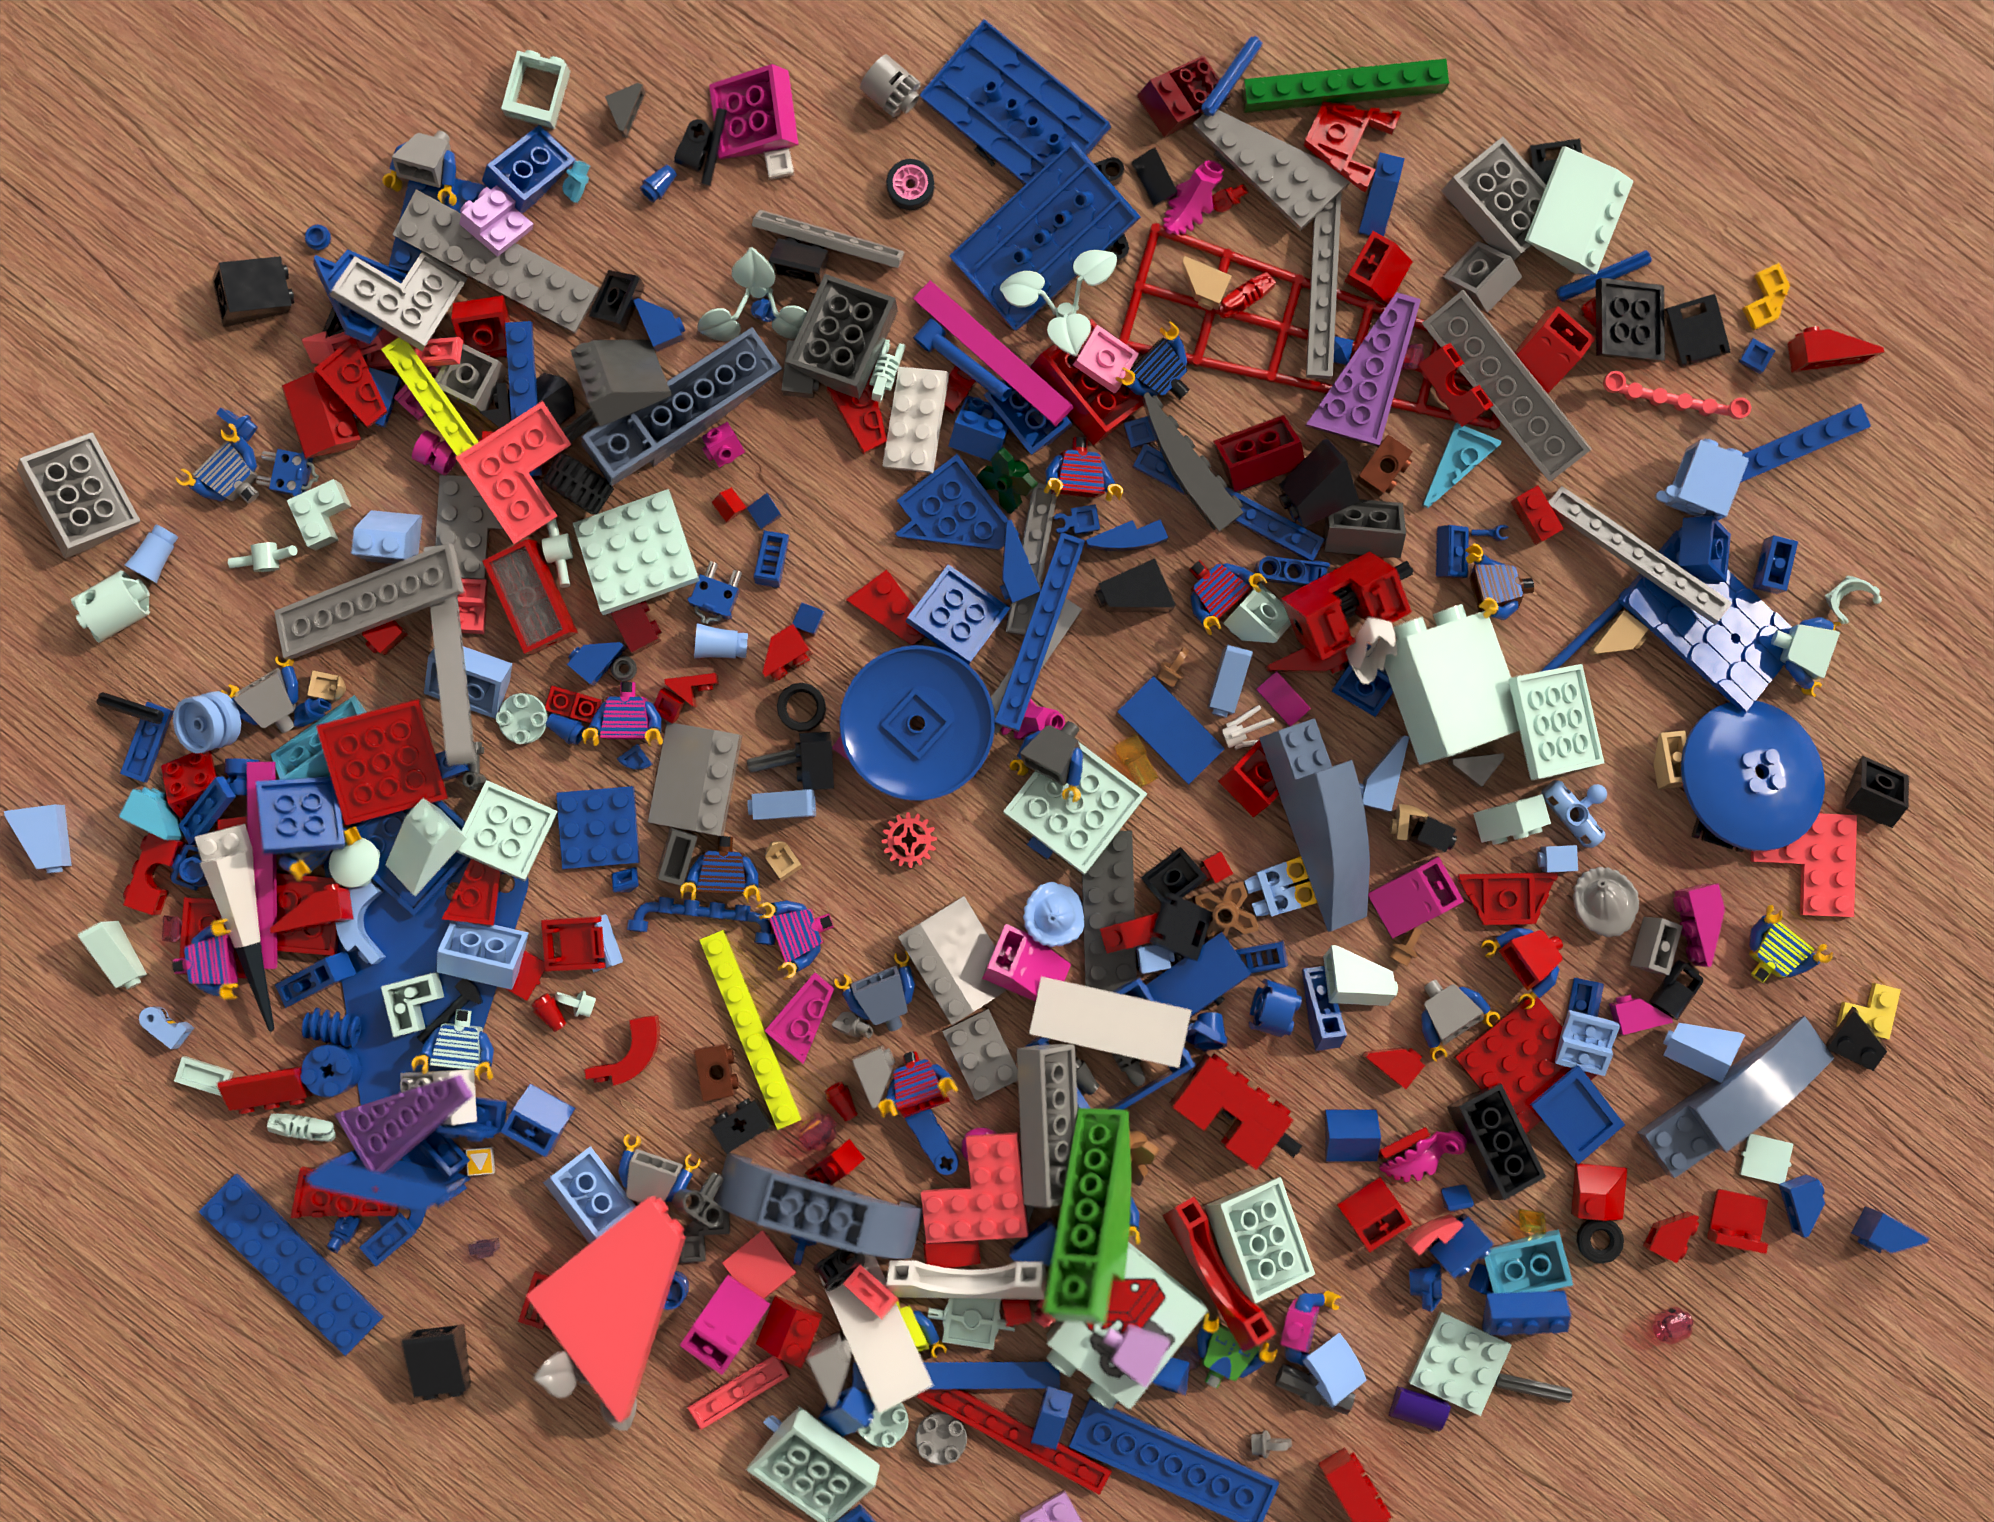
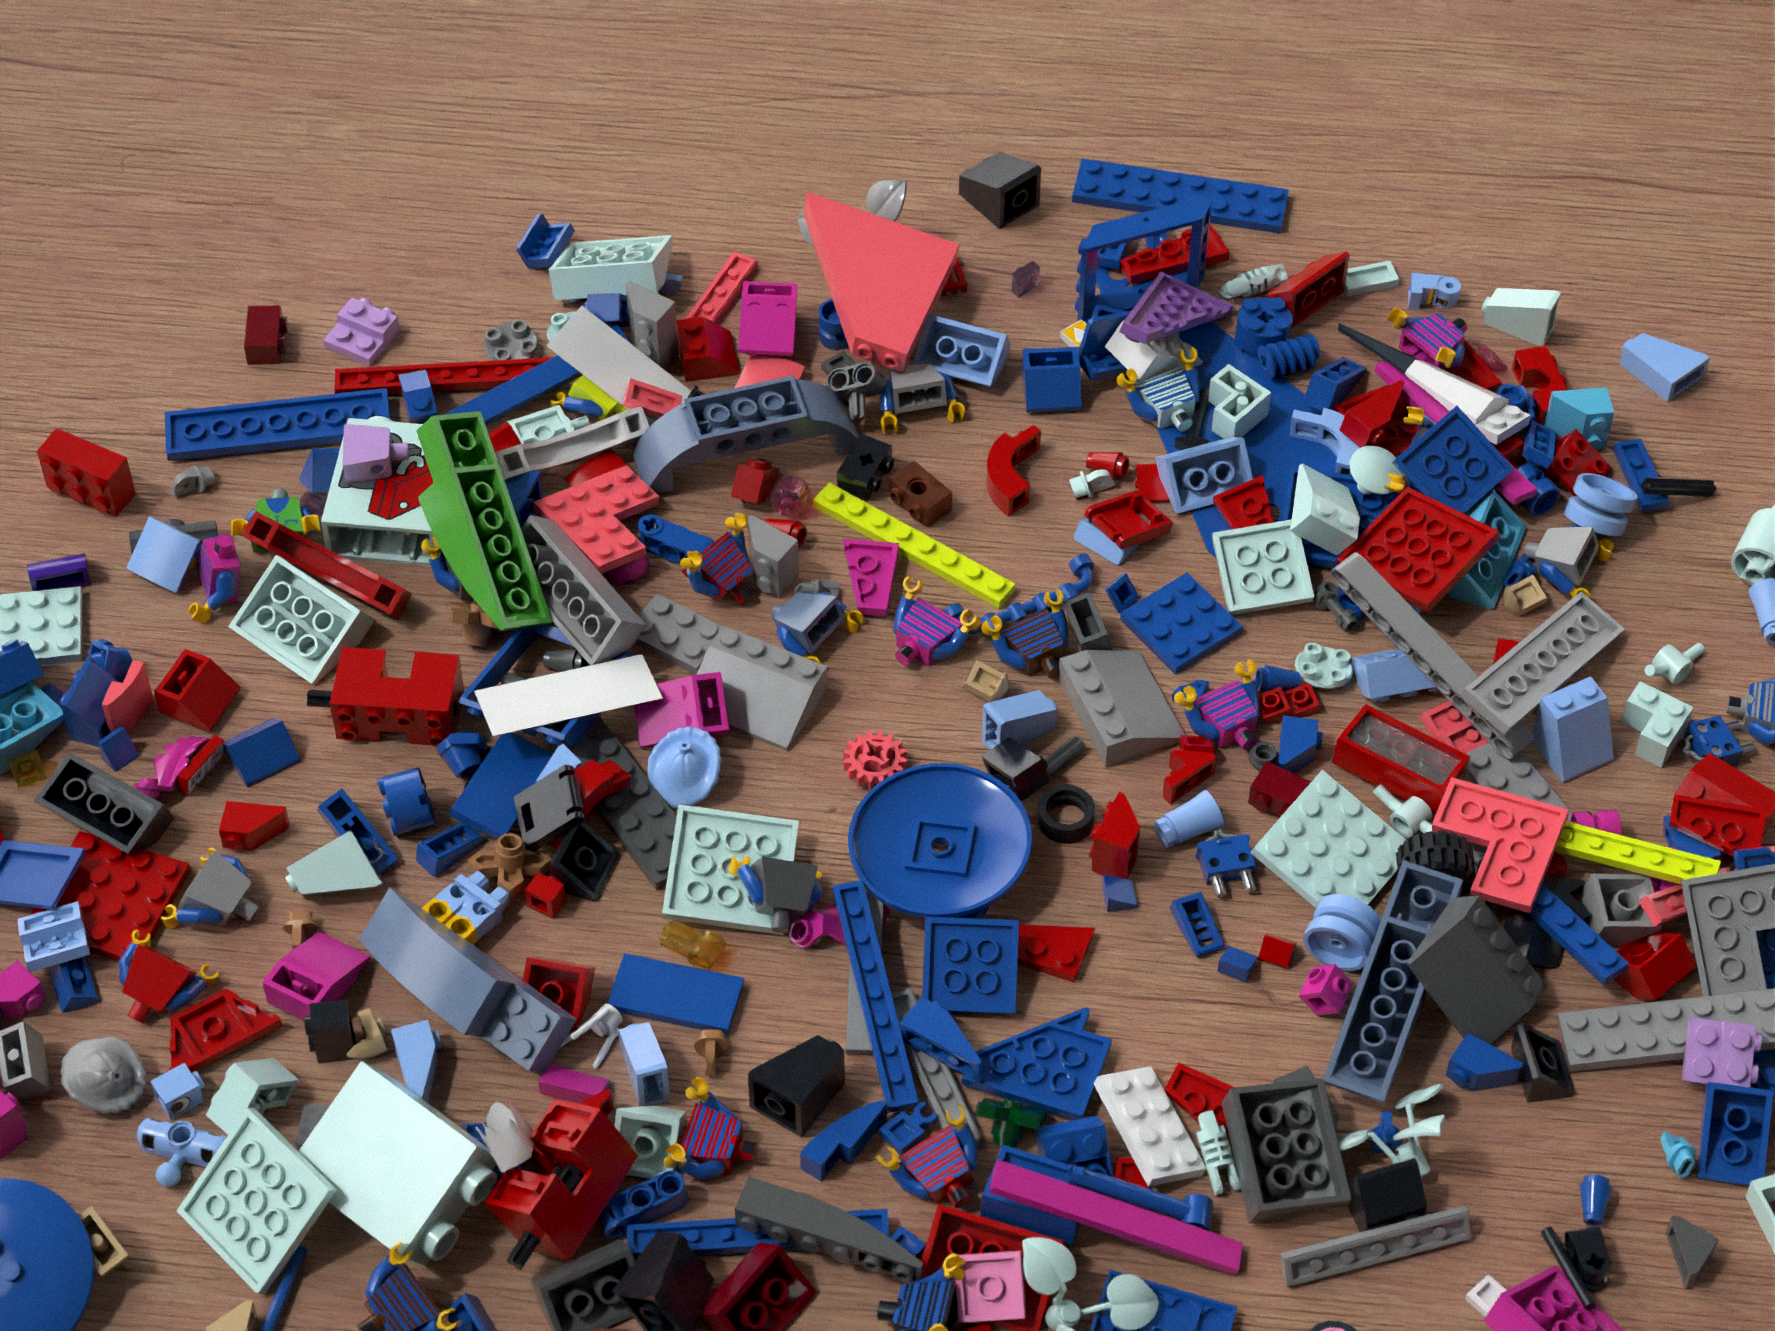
camera: 155 degrees right, 35 degrees down
(681, 476) = (1342, 932): none -> light blue wheel

